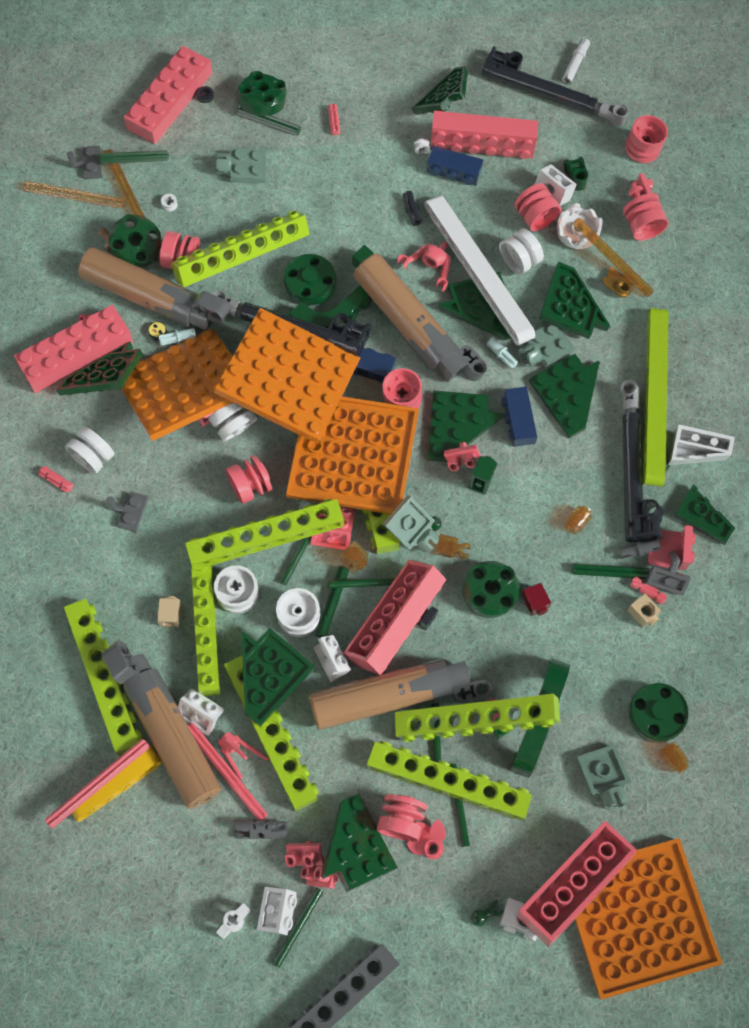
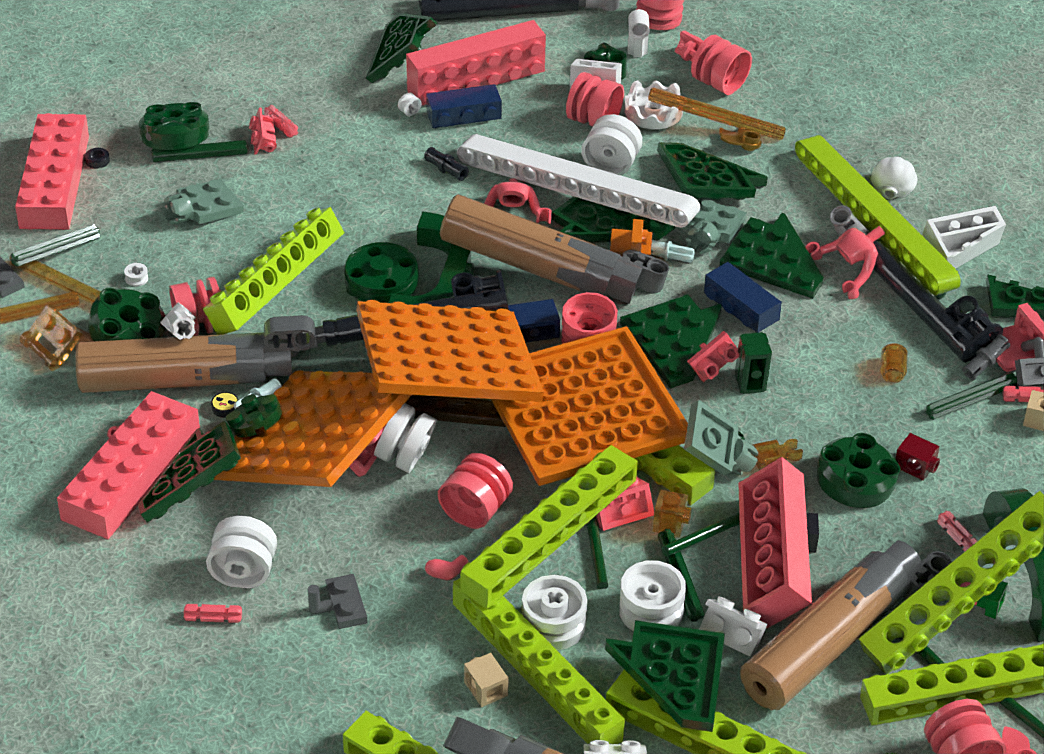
camera: 30 degrees left, 25 degrees down
(93, 229) = (57, 331): none -> clear orange plate
(152, 265) = (179, 322): none -> white piece
(152, 351) = (254, 414): none -> dark green plate
(201, 522) = (444, 569): none -> coral arm
(318, 118) = (262, 132): none -> coral hinge
(476, 338) = (635, 239): none -> orange brick
(521, 668) = (956, 530): none -> coral axle
(609, 161) = (638, 33): none -> white piece
(617, 419) = (853, 247): none -> coral piece
(694, 371) = (894, 177): none -> white plant

